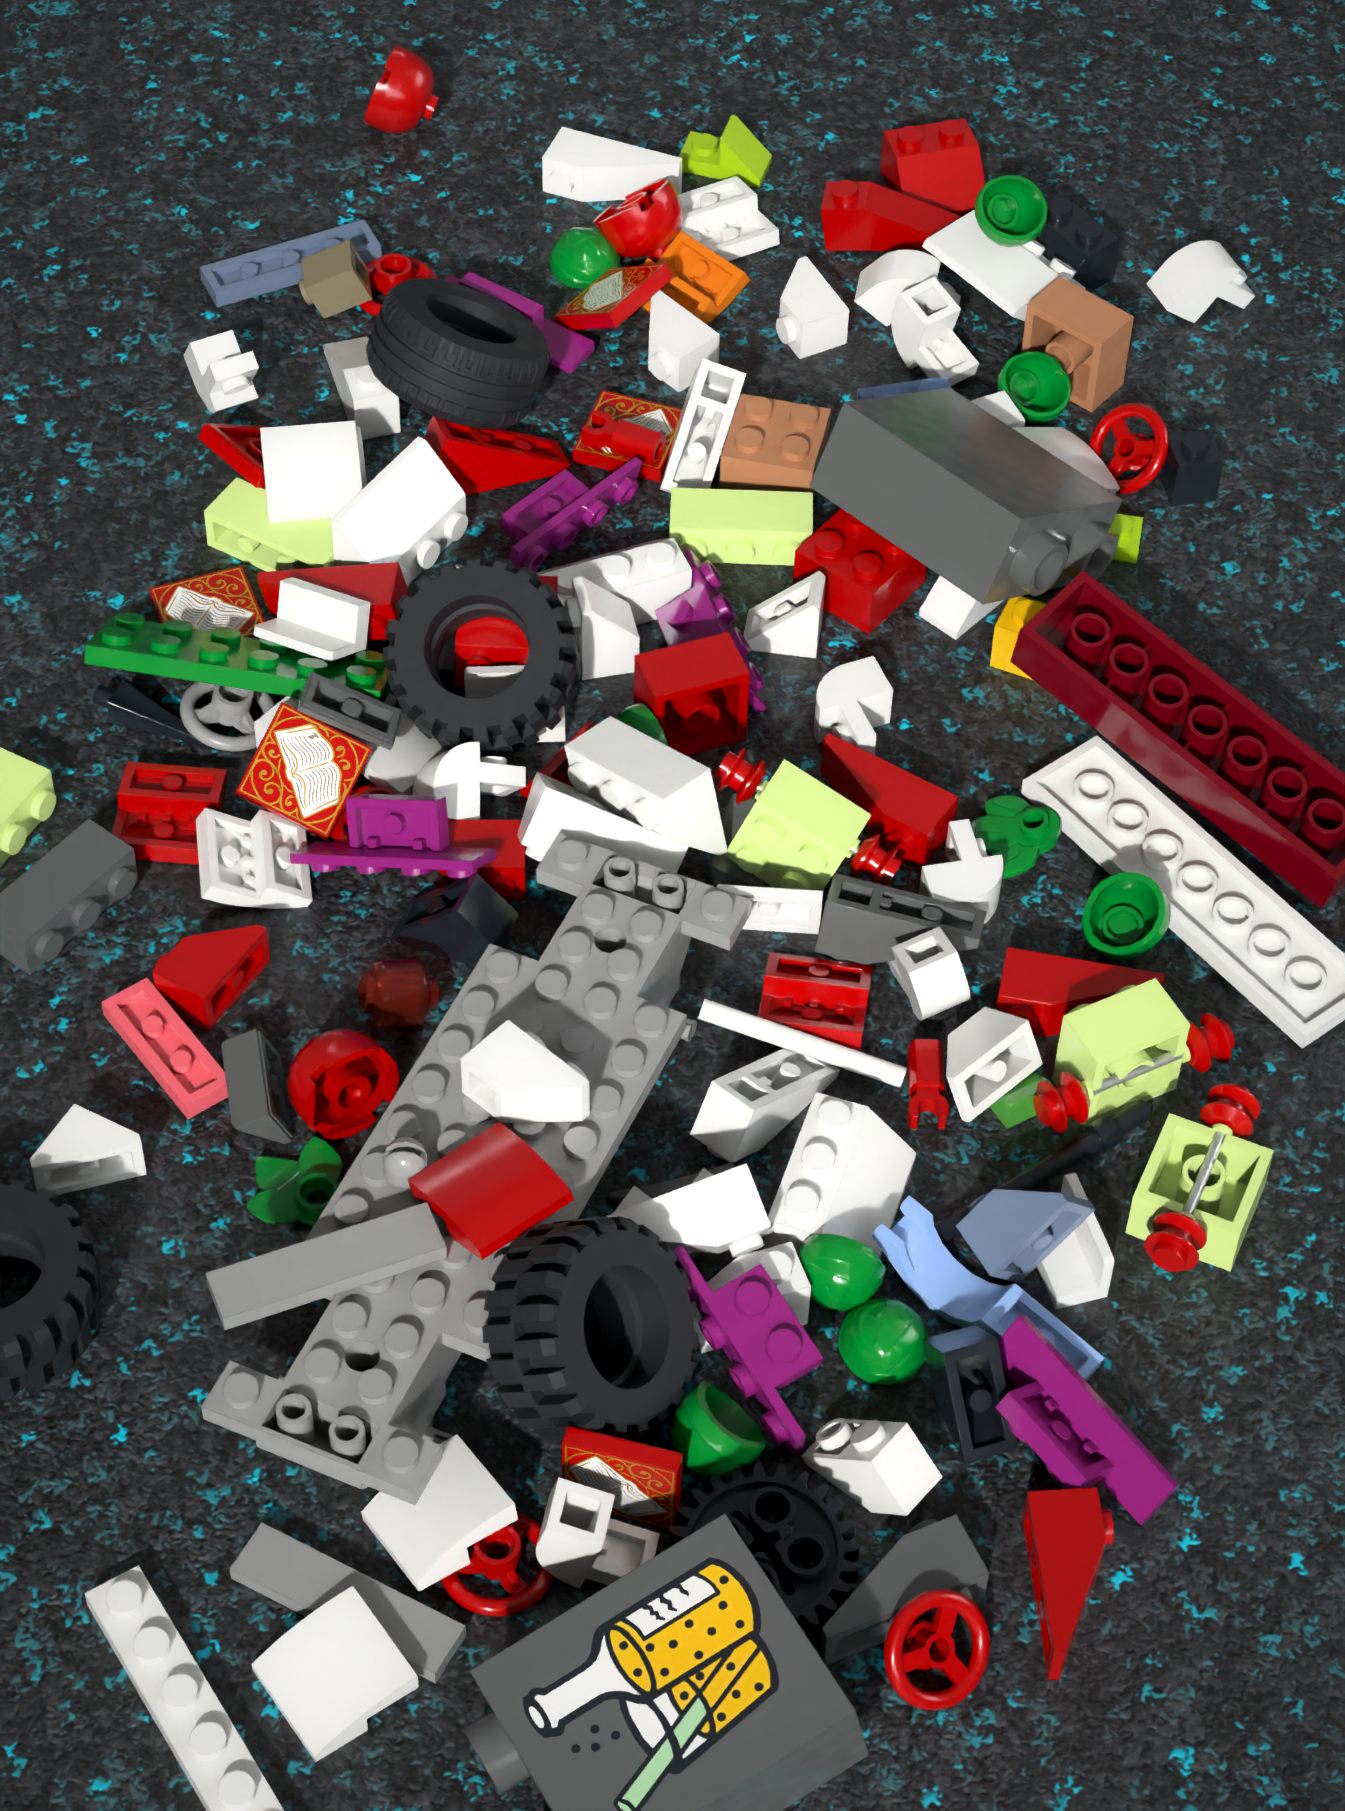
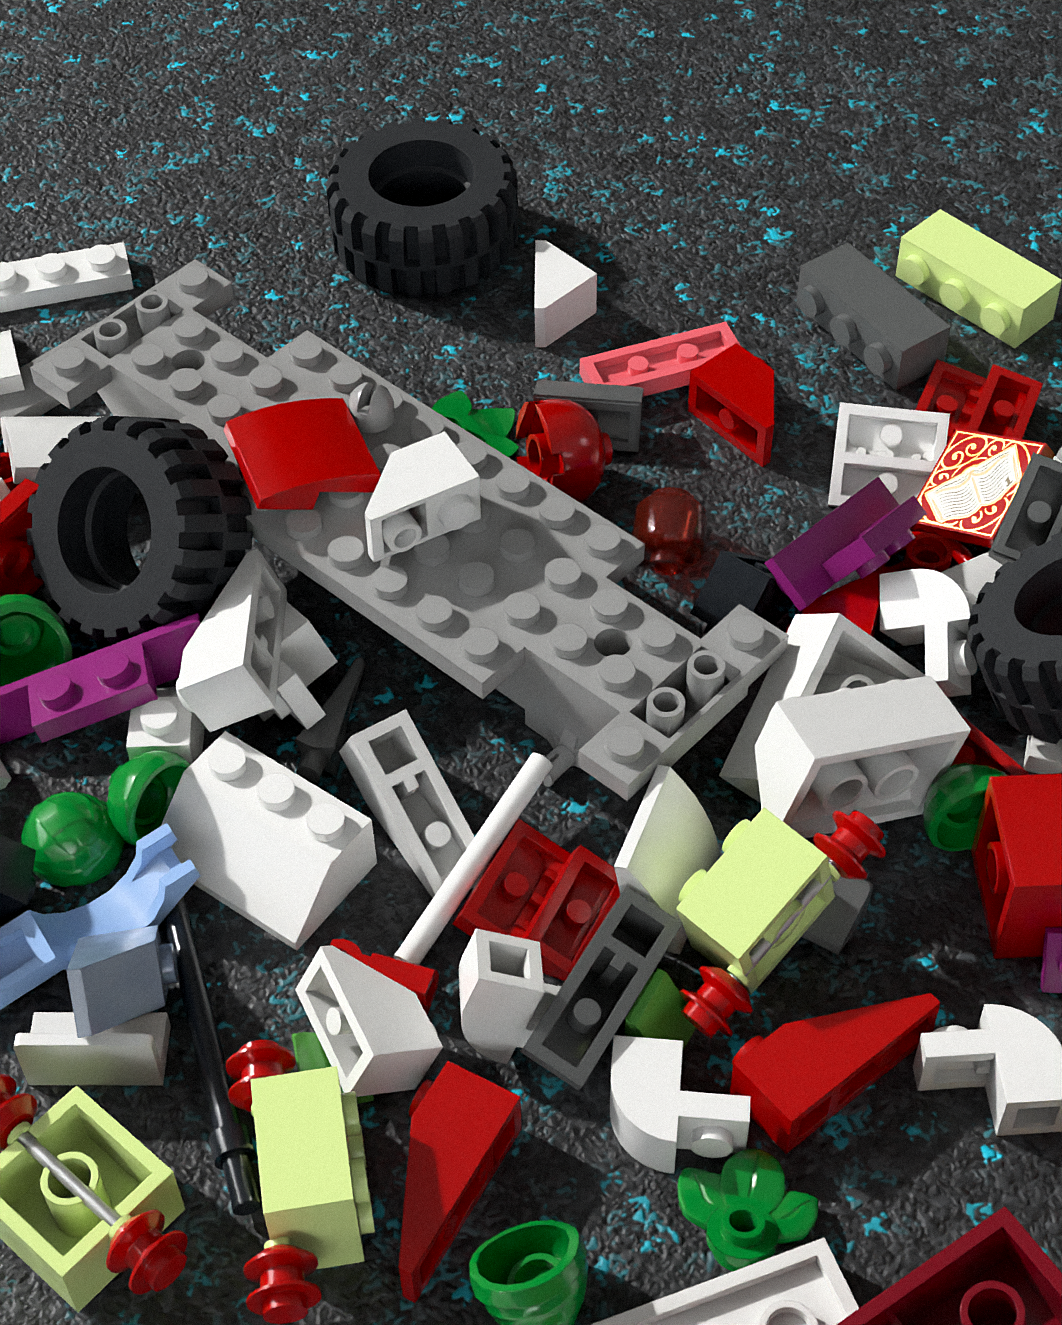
camera: 110 degrees right, 0 degrees up
(326, 1265) = (279, 331): light grey tile -> none

